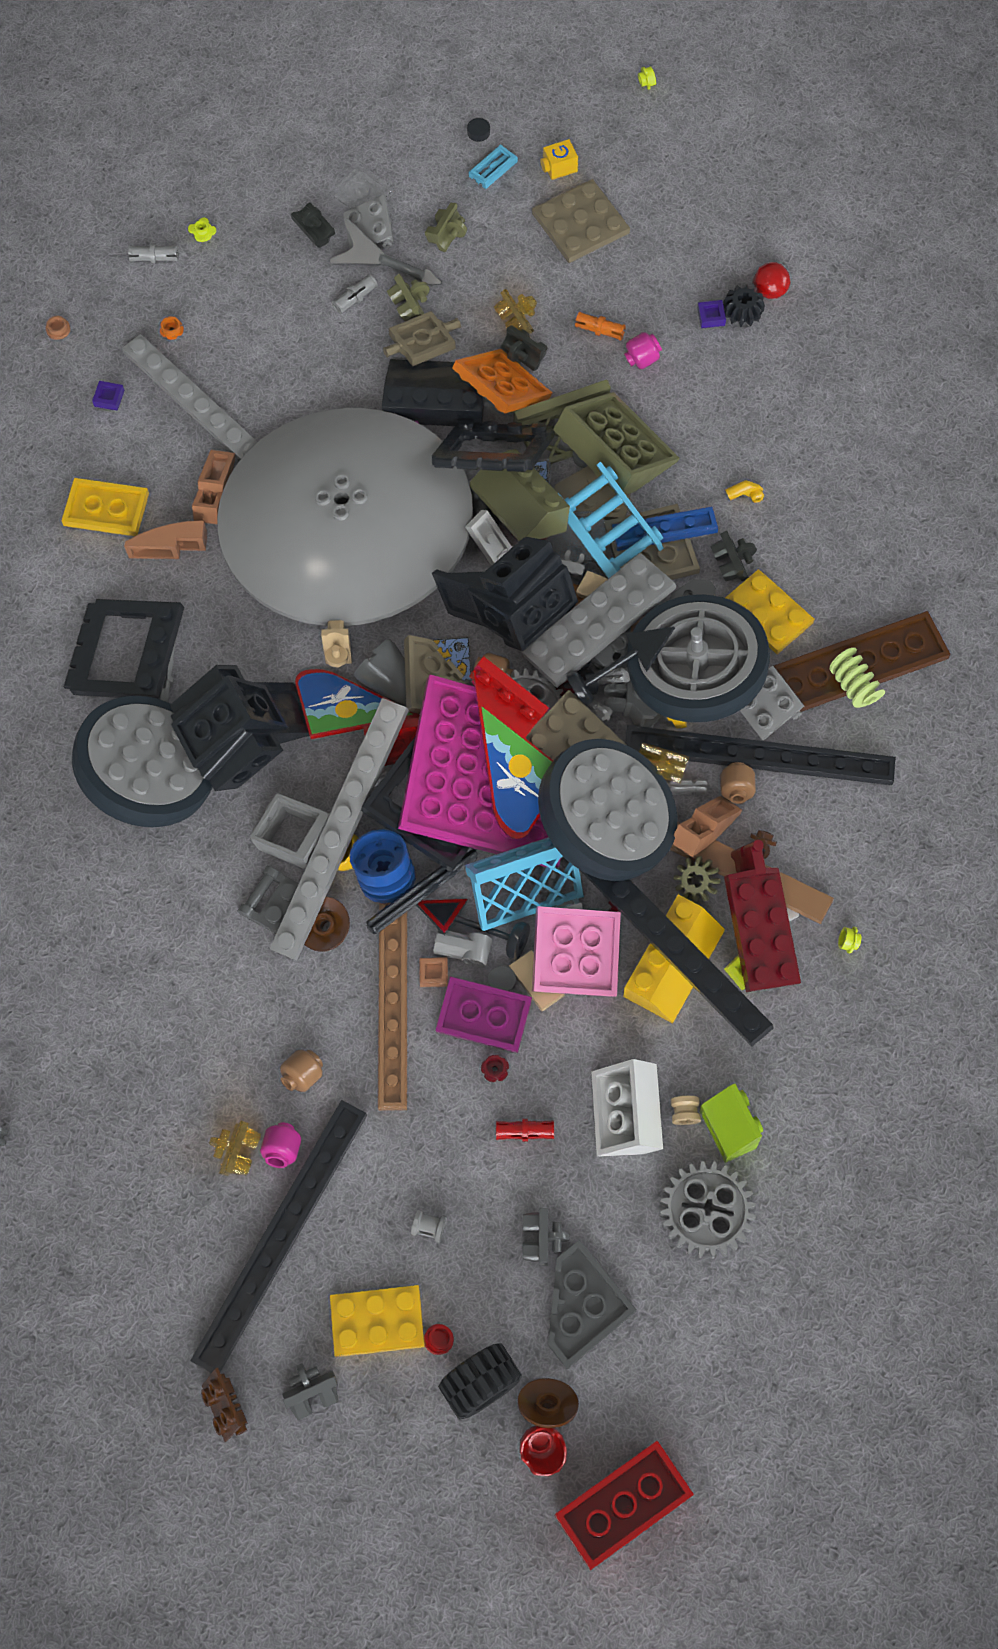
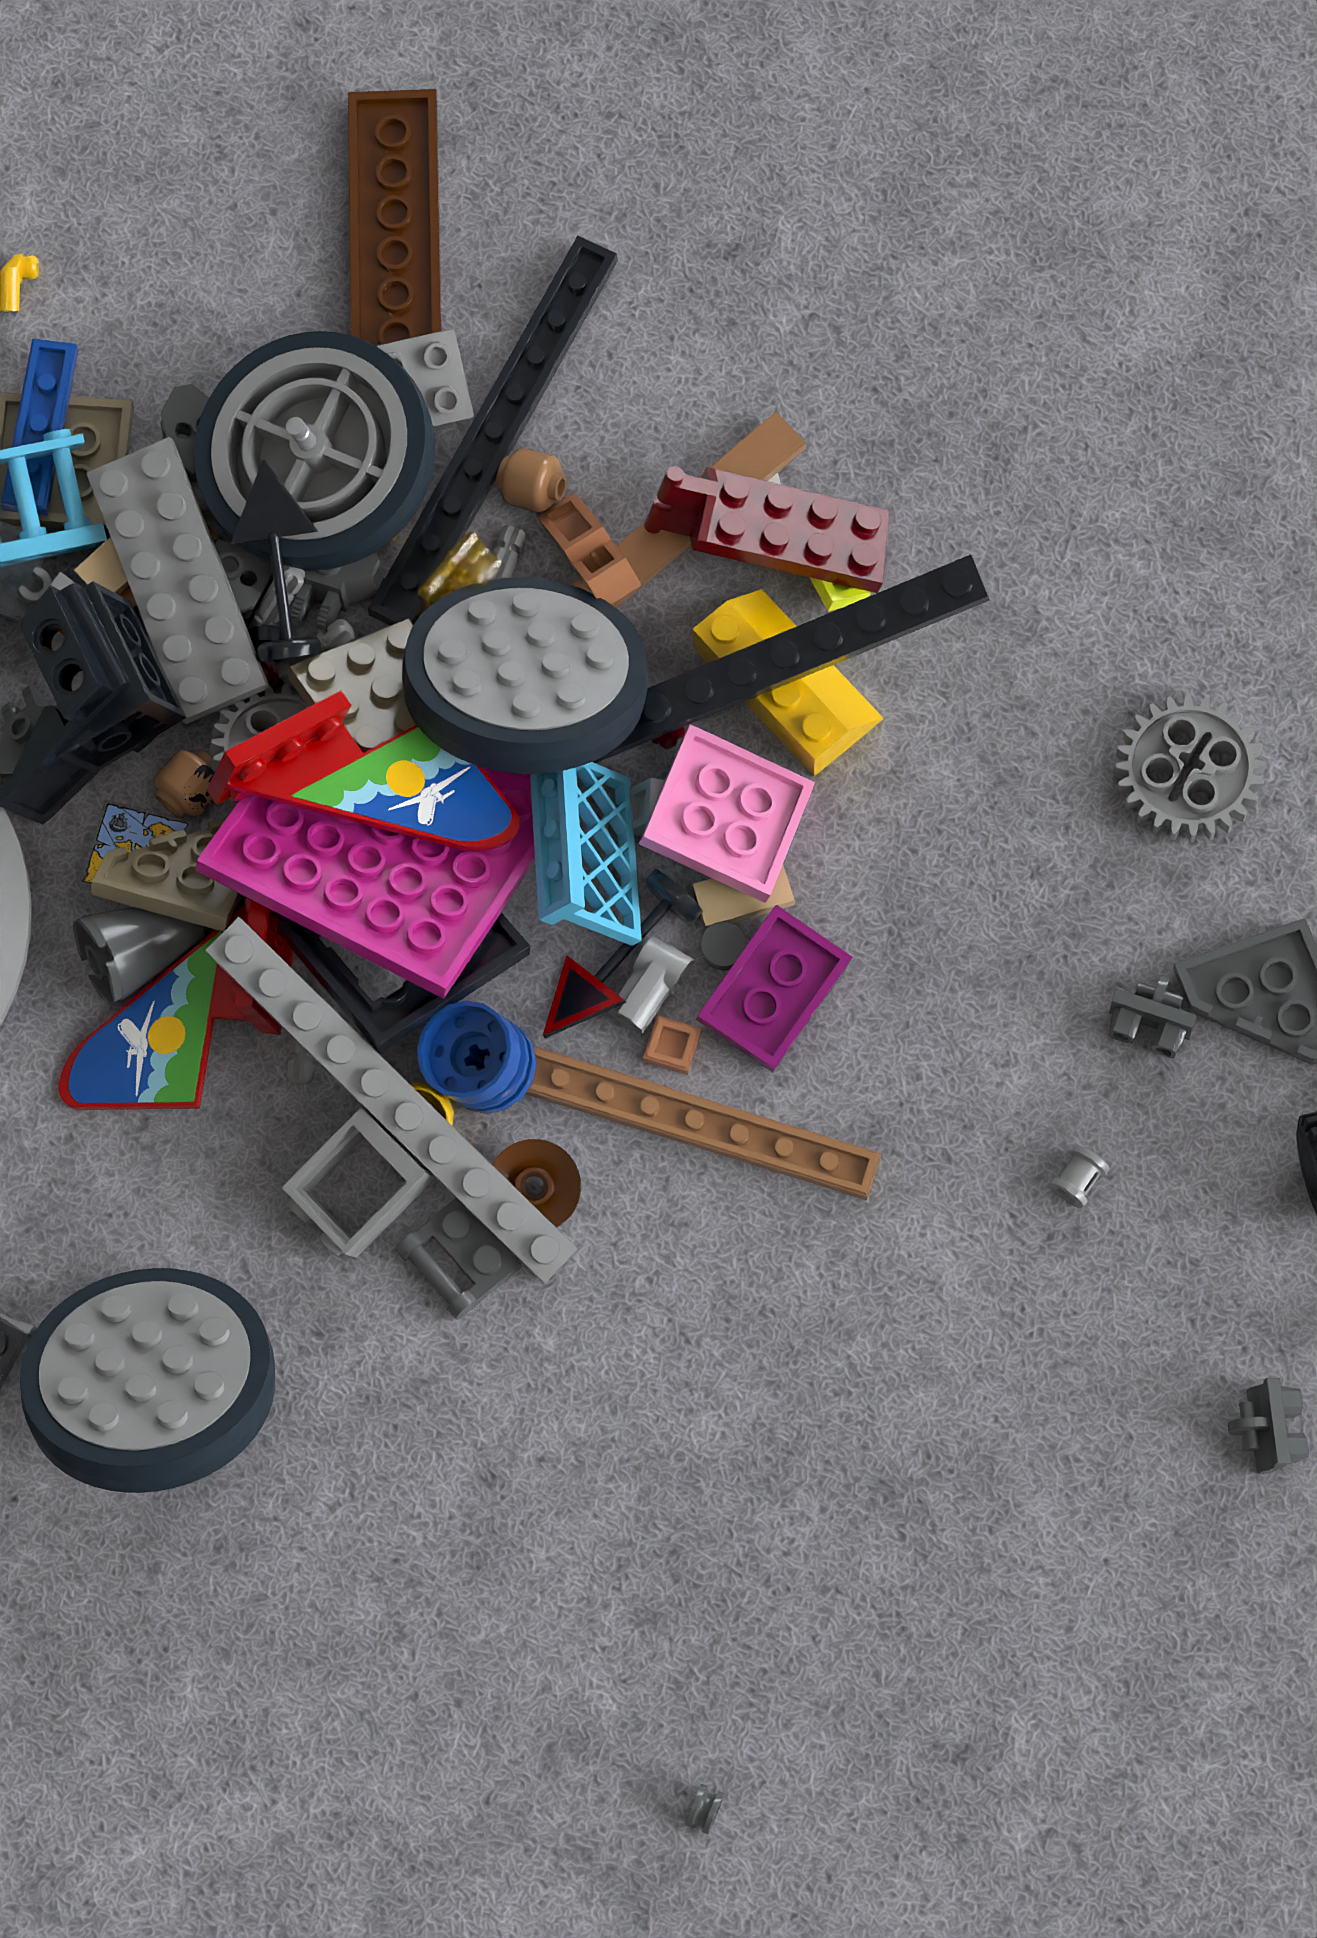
camera: 70 degrees left, 5 degrees up
(216, 1395) = (1254, 1557): reddish brown hinge -> none
(235, 724) = (137, 1215): black piece -> none
(240, 1137) = (856, 1435): clear yellow hips -> none
(279, 1238) = (1020, 1404): black plate -> none
(280, 1145) = (877, 1359): dark pink head -> none
(301, 1070) = (767, 1292): medium nougat head -> none
(336, 644) = (47, 1012): tan hips -> none
(377, 1321) = (1195, 1300): yellow plate -> none
(416, 894) = (543, 1040): black axle -> none
(438, 1339) = (1253, 1216): red plate -> none
(500, 1063) = (864, 990): dark red plate -> none
(524, 1130) = (977, 989): red pin -> none
(627, 1109) = (998, 829): white slope -> none
(685, 1110) = (1029, 745): tan wheel -> none
(699, 869) = (663, 581): olive gear -> none
(727, 548) = (151, 345): pearl dark grey hips -> none
(731, 1123) = (1077, 683): lime slope -> none
(766, 838) = (637, 479): reddish brown plate -> none
(773, 608) = (239, 320): yellow plate -> none
(849, 939) = (845, 416): neon yellow plate -> none
(854, 680) = (433, 237): yellowish green piece -> none

